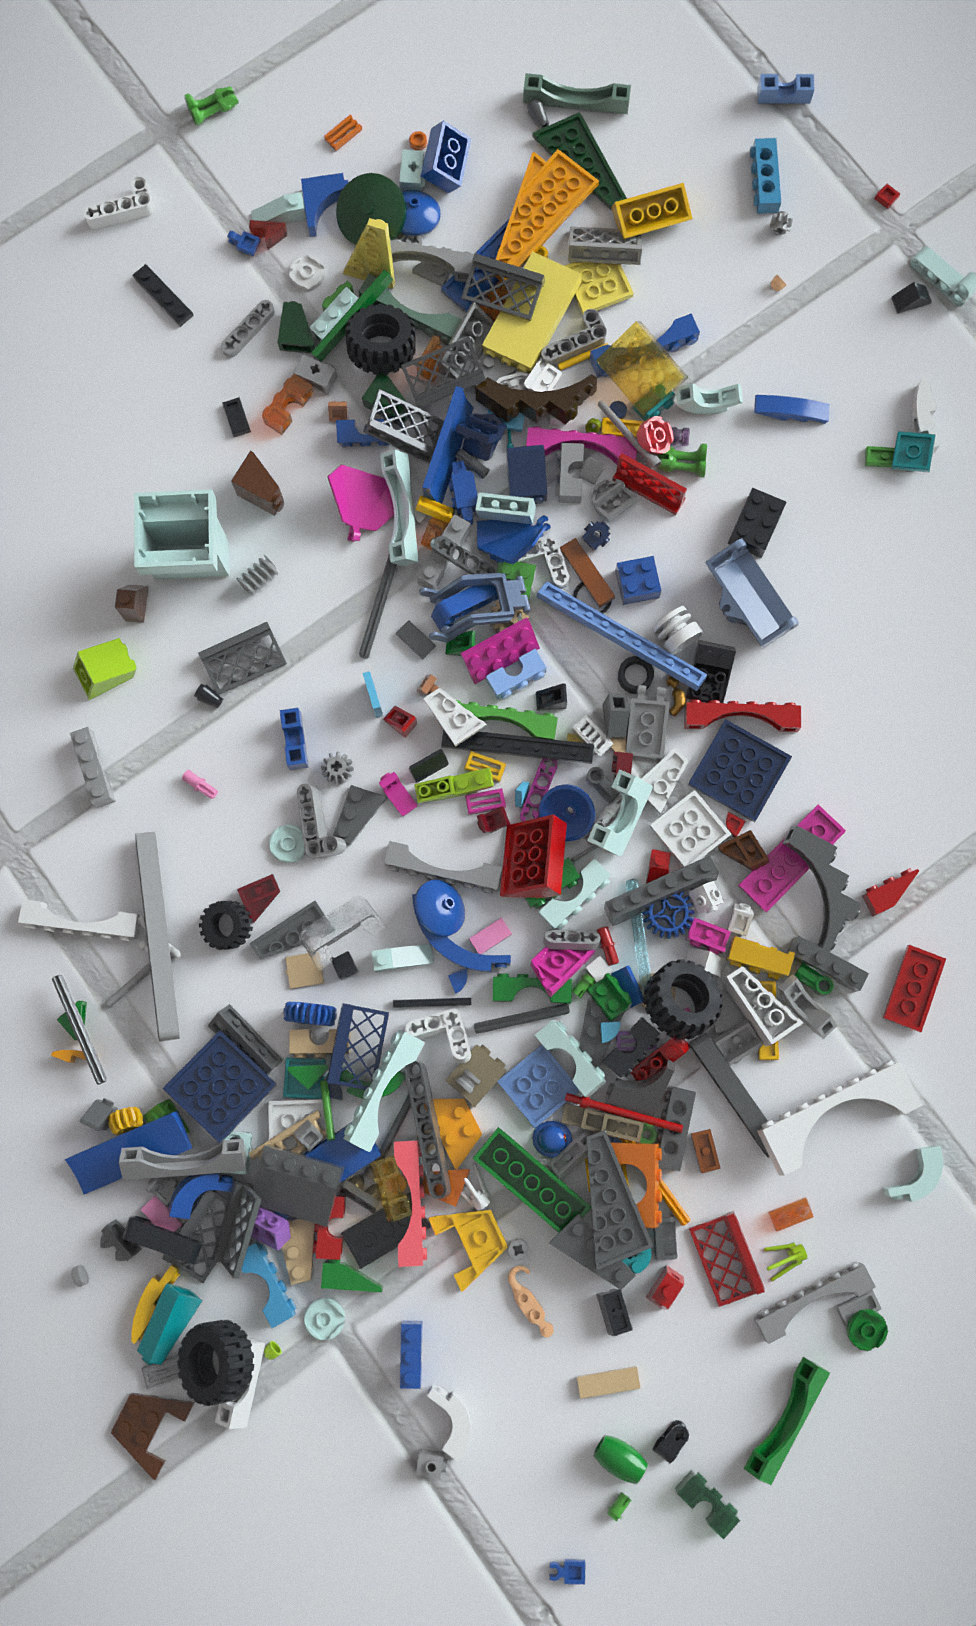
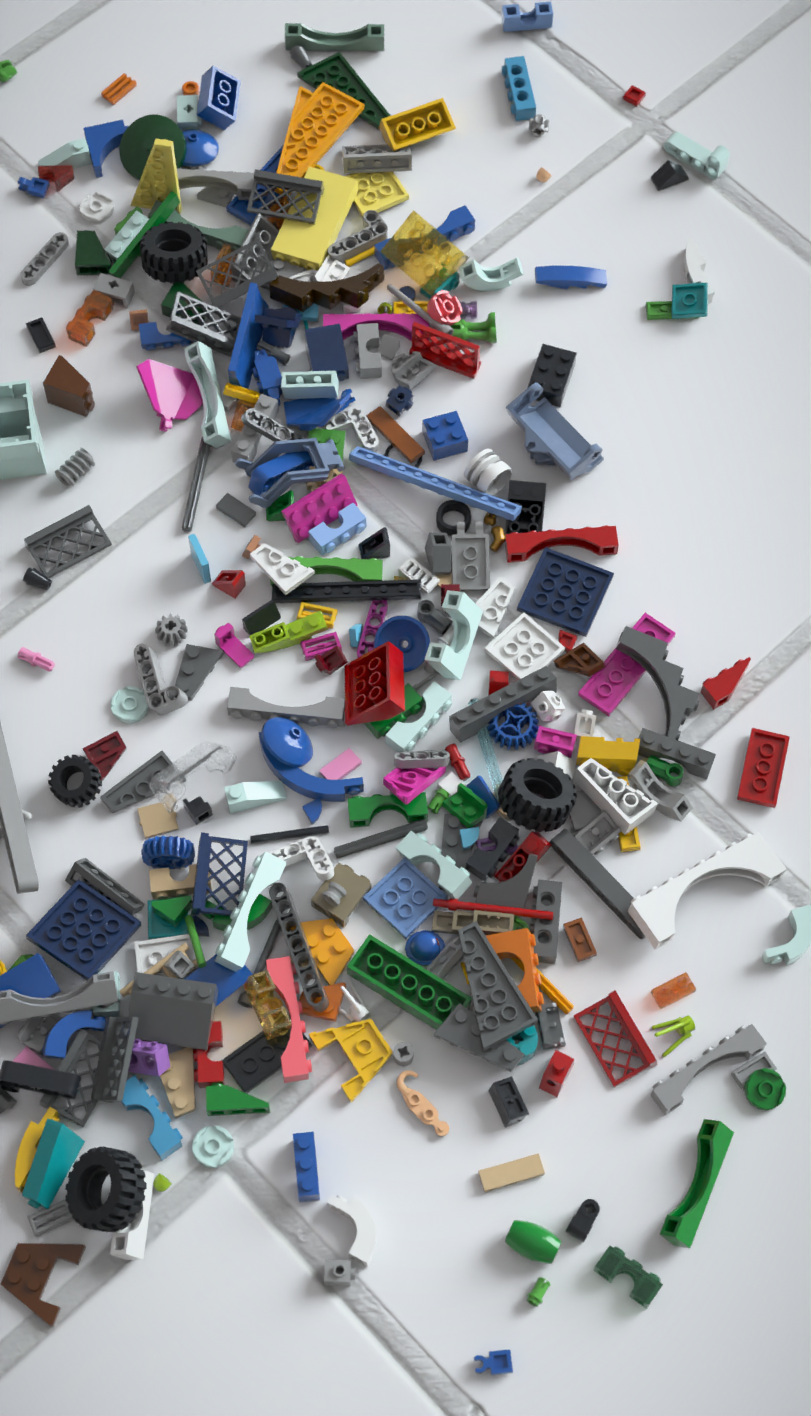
camera: 10 degrees left, 15 degrees down
(294, 738) = (126, 606): blue arch -> none
(354, 1190) = (235, 1021): dark grey tile -> none

